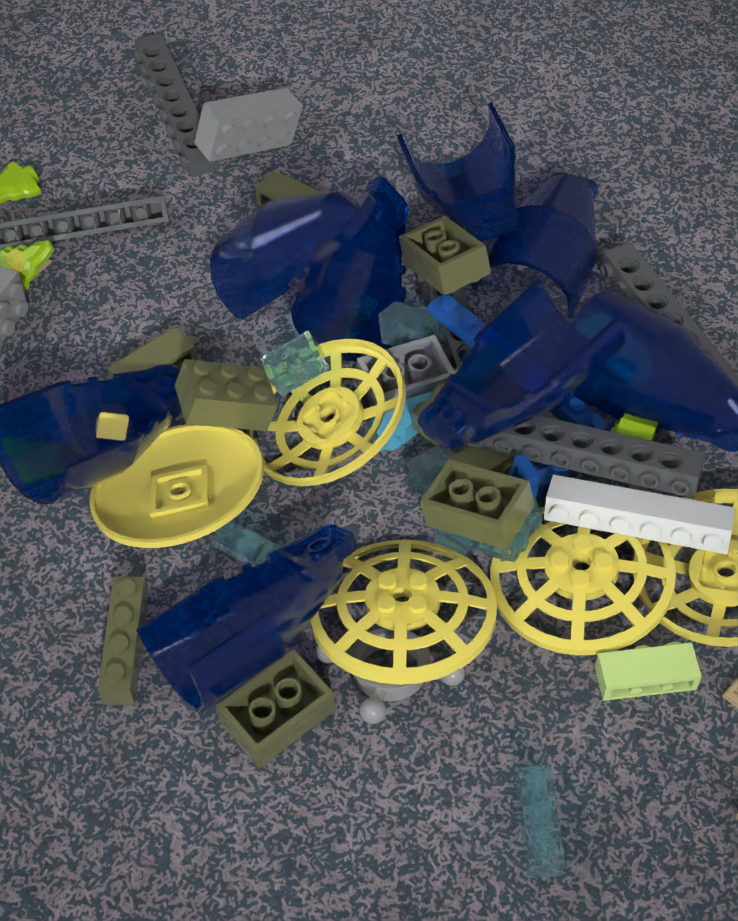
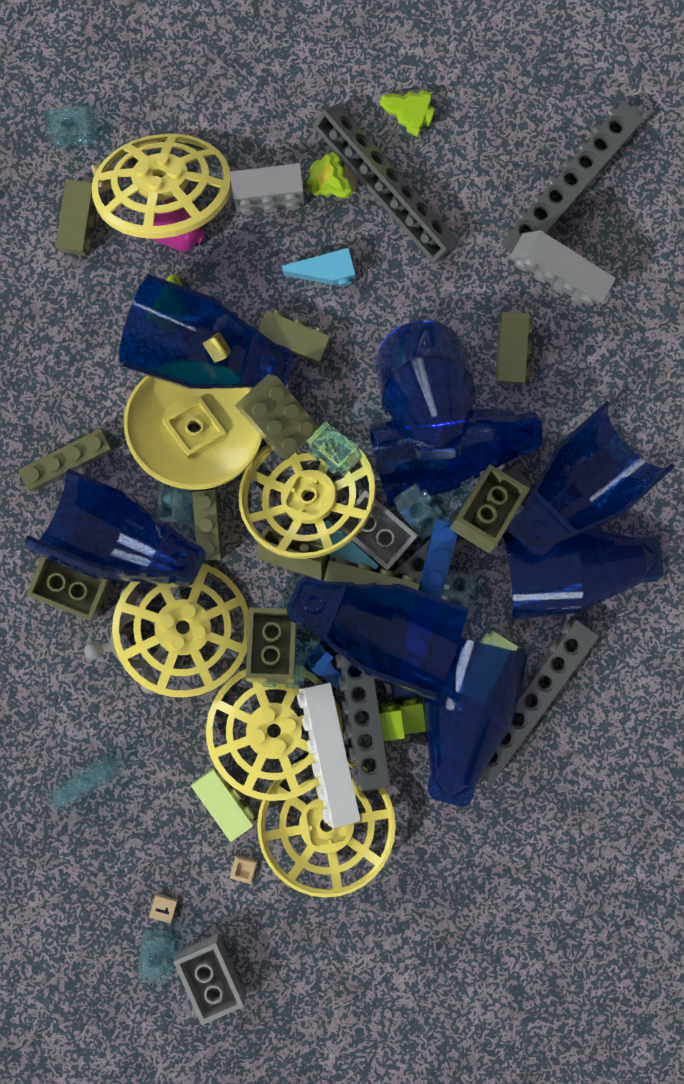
camera: 65 degrees right, 35 degrees up
(104, 310) = (327, 268): none -> medium azure slope
(285, 522) = (208, 523): none -> olive brick
(389, 462) = (311, 567): none -> olive brick

